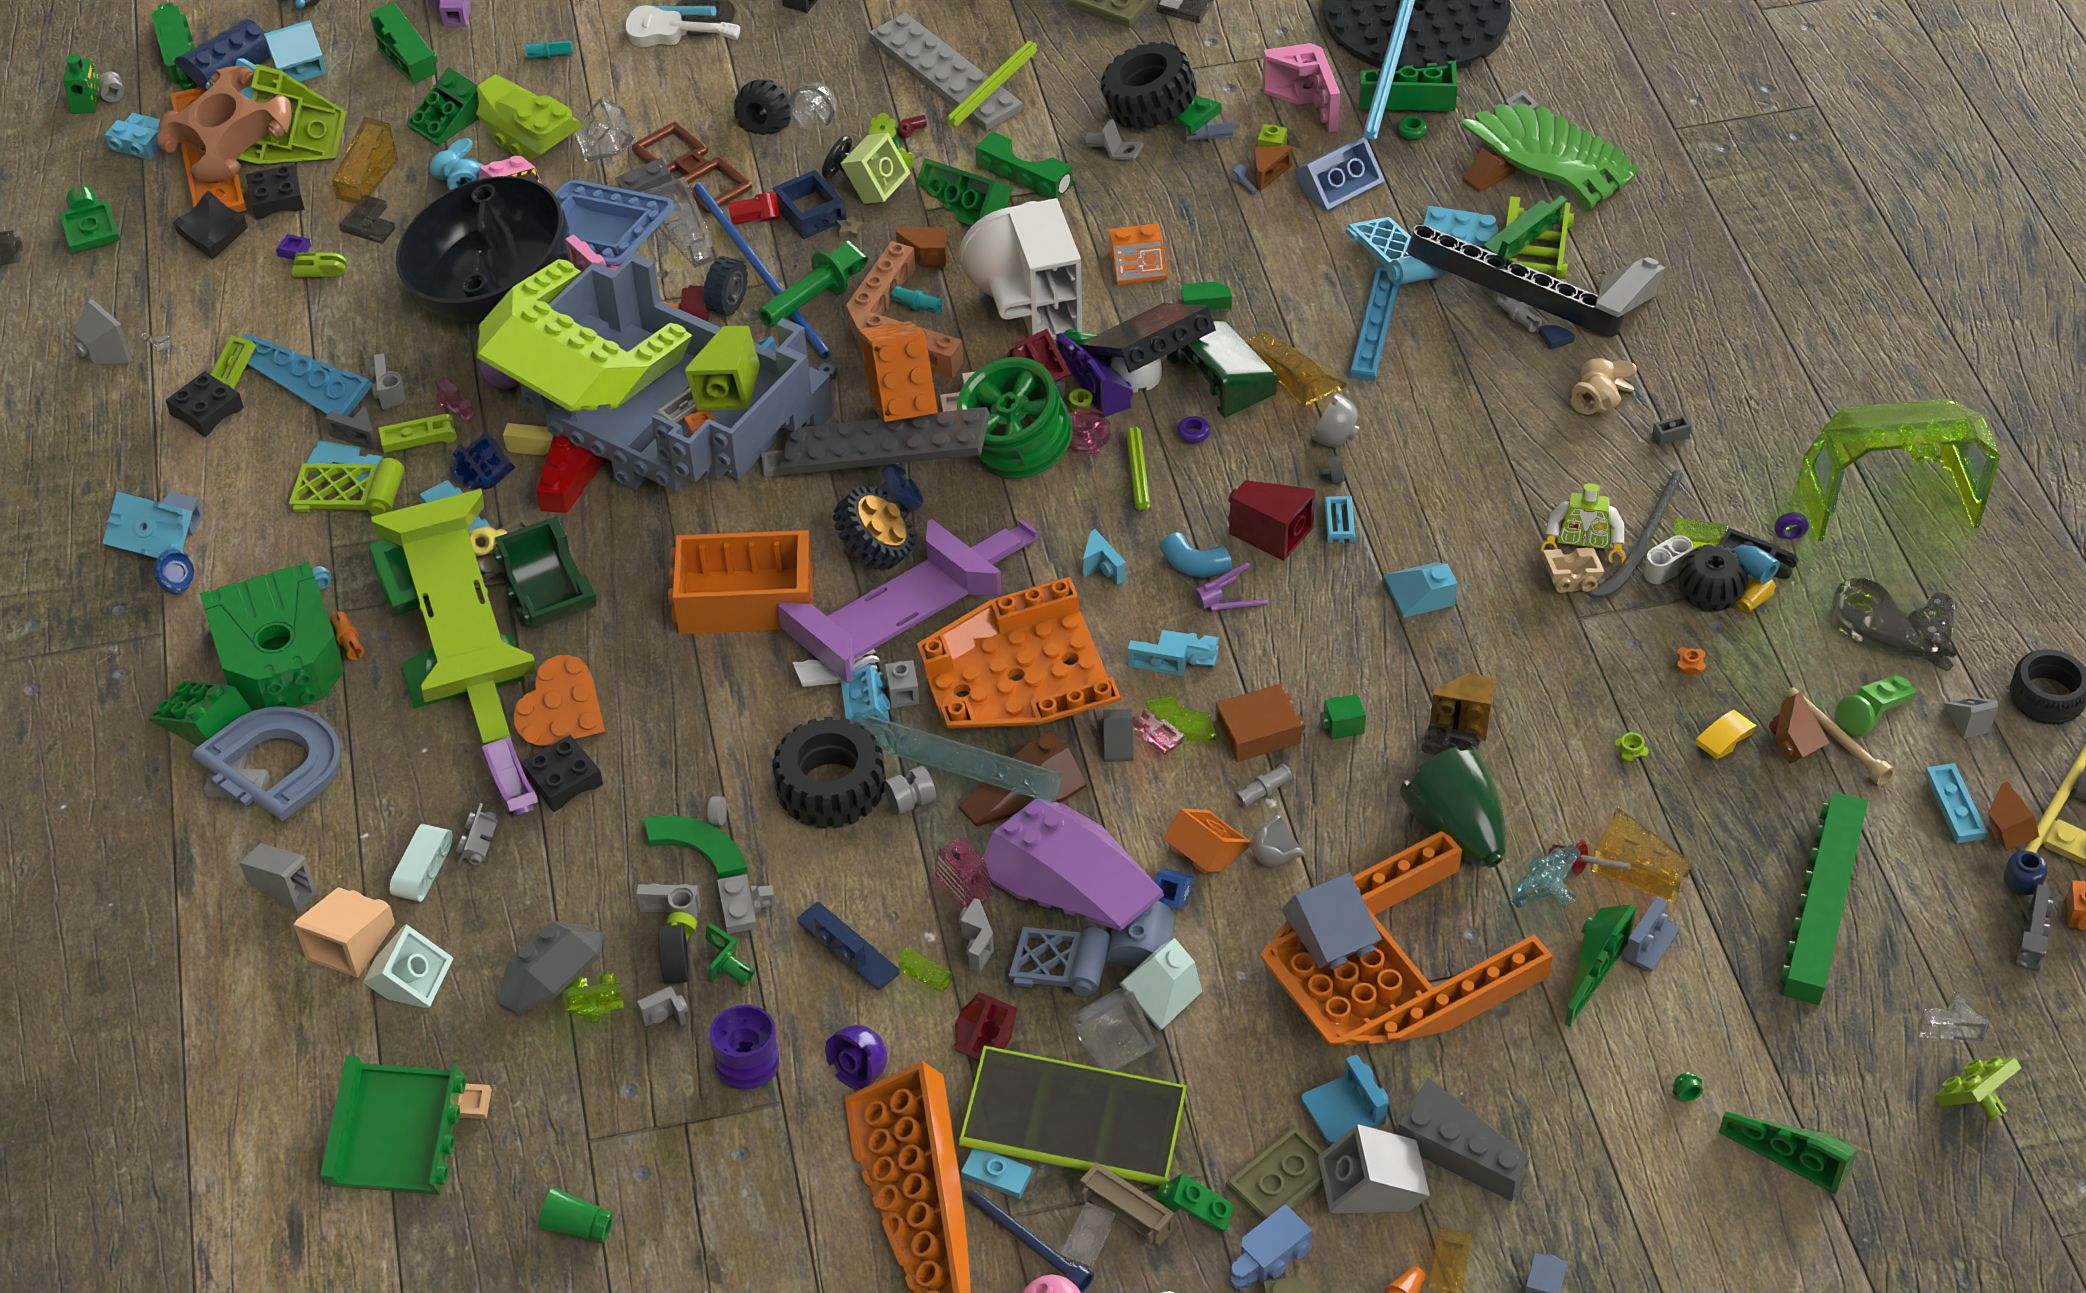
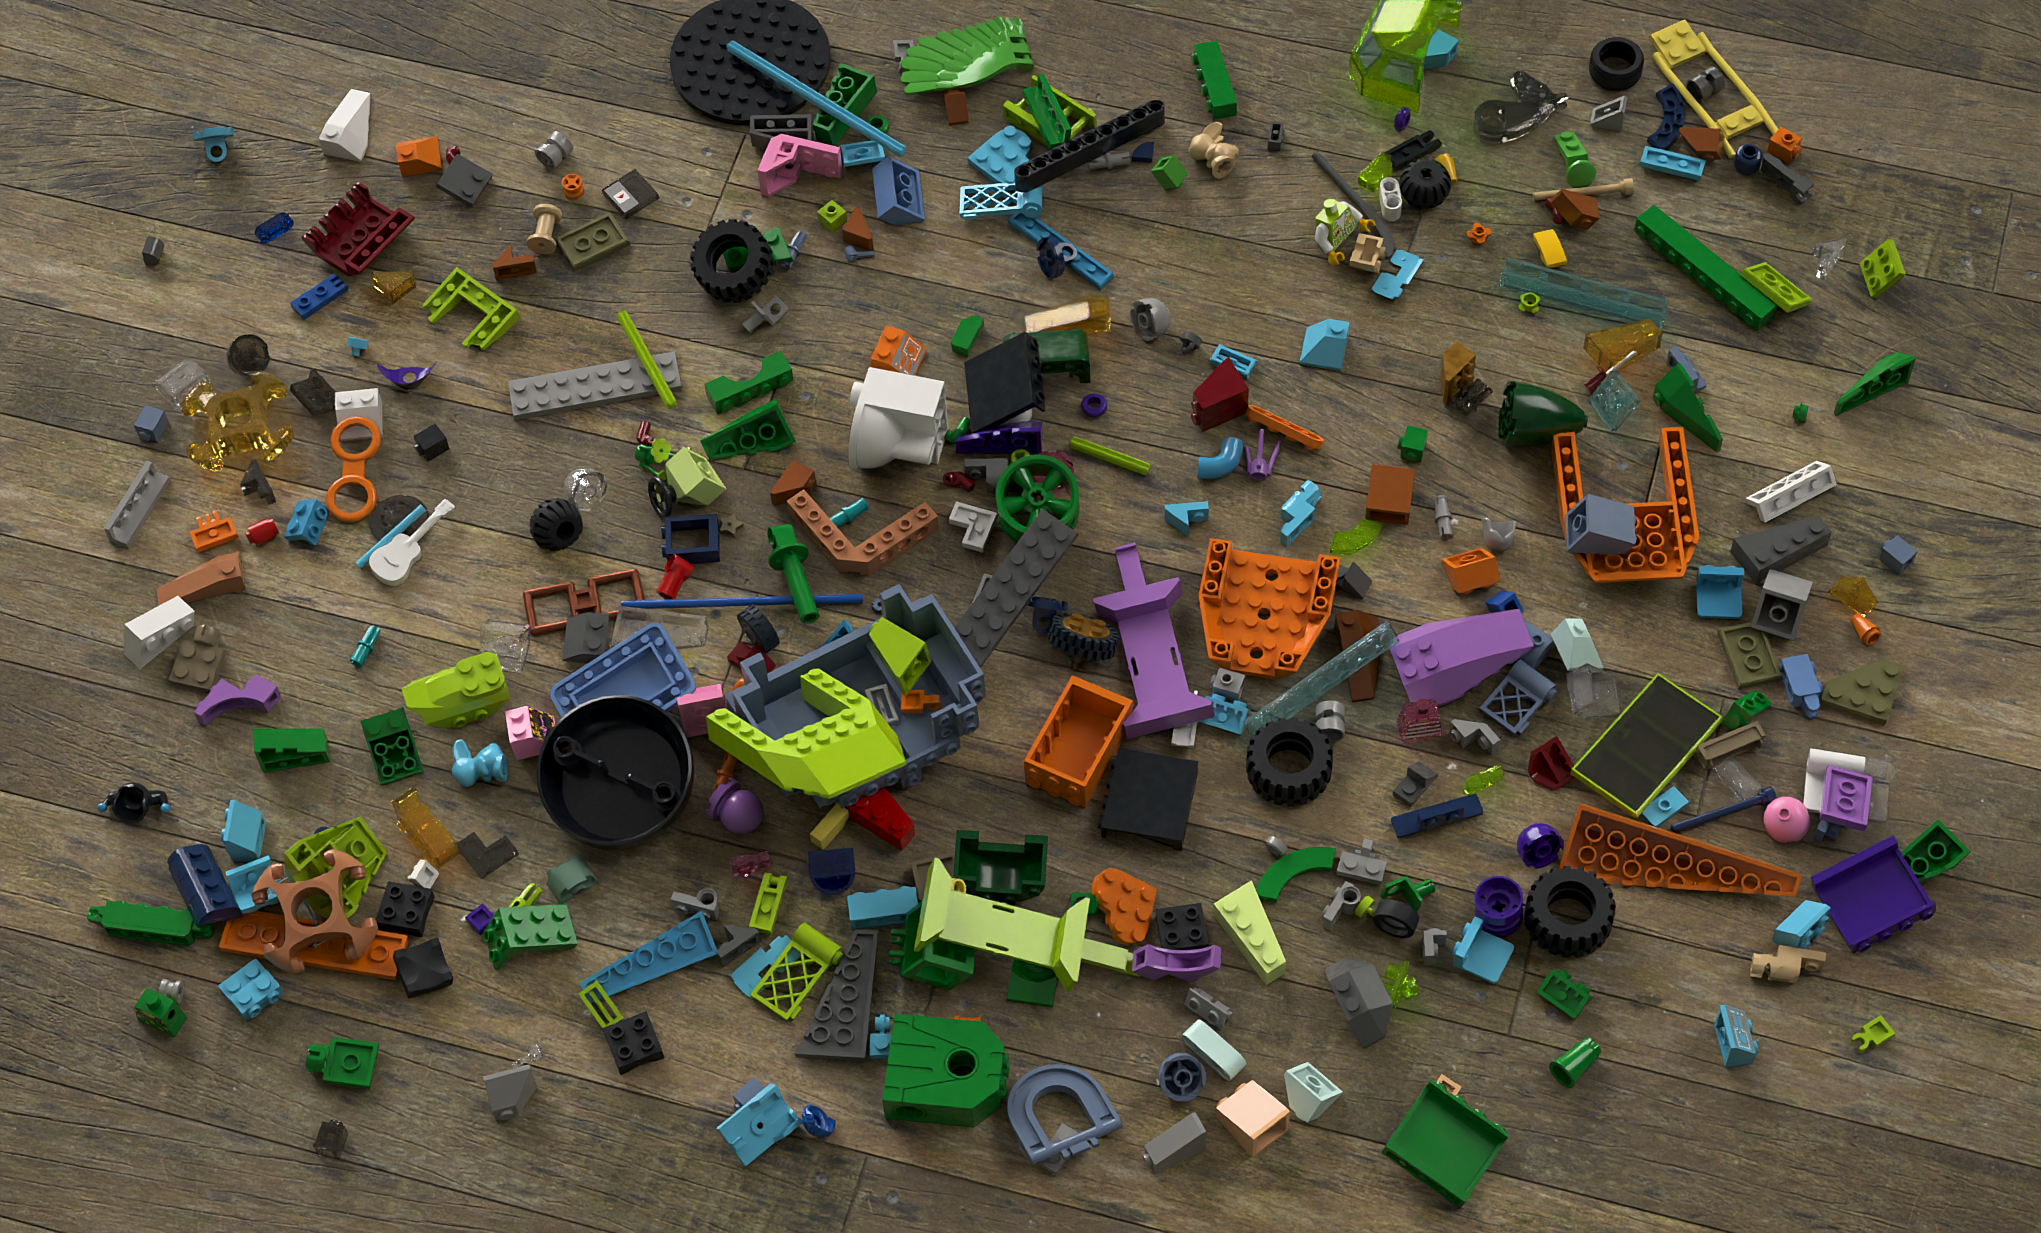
camera: 60 degrees left, 10 degrees up
(199, 710) = (976, 1150): green slope -> none
(290, 278) = (528, 929): none -> green bracket
(313, 539) = (844, 1011): none -> dark grey wing
(316, 187) = (423, 874): none -> white tile
(363, 840) = (1181, 1076): none -> sand blue cylinder
(371, 285) = (570, 878): none -> sand green cylinder
(588, 832) = (1251, 931): none -> yellowish green wedge
(671, 1170) = (1565, 993): none -> green bracket
(680, 1060) = (1482, 952): none -> medium azure bracket
(714, 676) = (1149, 796): none -> black panel
(787, 1157) = (1573, 885): none -> black tyre
(884, 907) = (1415, 783): none -> dark grey slope
(898, 371) = (958, 549): orange container -> none
(1043, 350) = (985, 462): dark red slope -> none
(1158, 733) = (1364, 554): clear pink plate -> none
(1281, 594) = (1277, 424): none -> orange plate
(1342, 58) = (768, 126): none -> dark grey wedge
(1351, 312) = (1051, 257): none -> dark blue tile
(1355, 125) = (862, 153): none -> medium azure slope
(1539, 360) = (1169, 172): none -> bright green brick
(1557, 609) = (1388, 284): none -> medium azure piece
(1560, 1124) = (1792, 490): none -> white fence
(1629, 286) = (1138, 86): light grey wedge -> none
(1688, 794) = (1583, 292): none -> clear light blue tile
(1699, 349) = (1214, 80): none -> green brick
(1757, 562) = (1438, 151): dark azure cylinder -> none
(1854, 980) = (1776, 287): none -> lime tile
(1912, 517) = (1440, 50): none -> medium azure slope
(2033, 779) = (1673, 118): none -> dark blue tile

